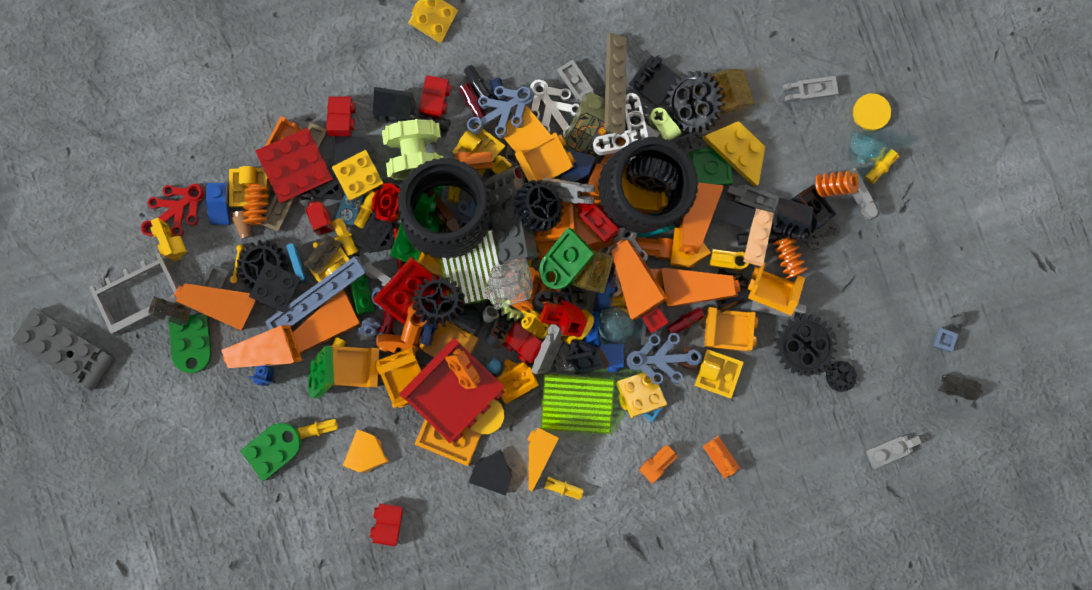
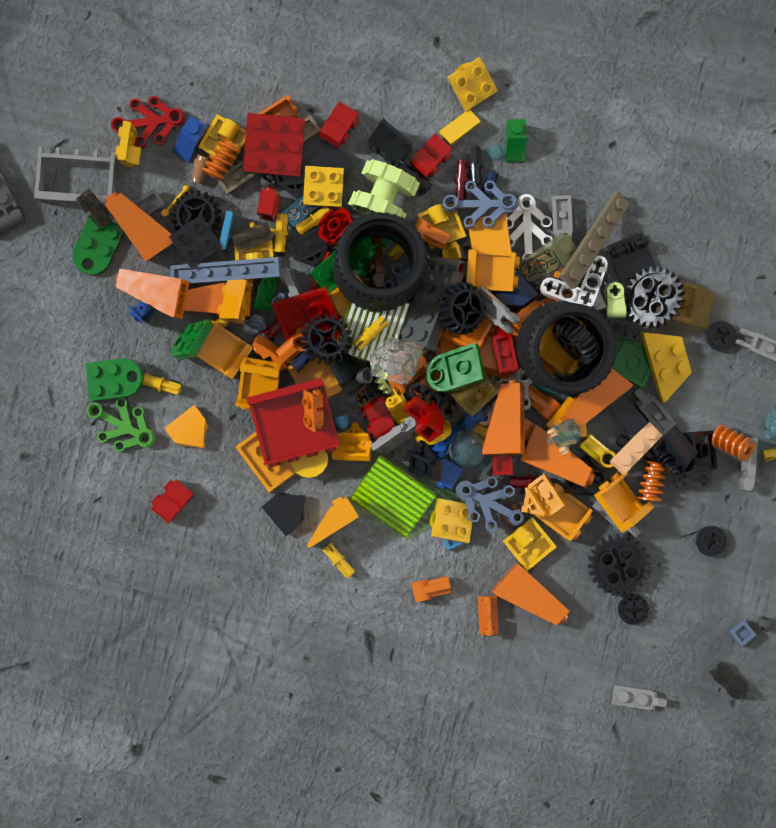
camera: 30 degrees right, 5 degrees up
(307, 485) = (124, 426): none -> bright green plant
(339, 316) = (235, 301): none -> light orange slope
(444, 59) = (459, 127): none -> yellow slope
(473, 274) = (370, 333): none -> yellow pin
(486, 61) = (495, 152): none -> clear light blue hinge
(497, 41) = (515, 140): none -> green slope
(692, 261) = (564, 435): none -> clear light blue piece
(706, 327) = (542, 498): none -> light orange slope
(740, 416) = (527, 593): none -> orange slope
(768, 93) = (729, 339): none -> black gear
(874, 270) = (713, 549): none -> black gear

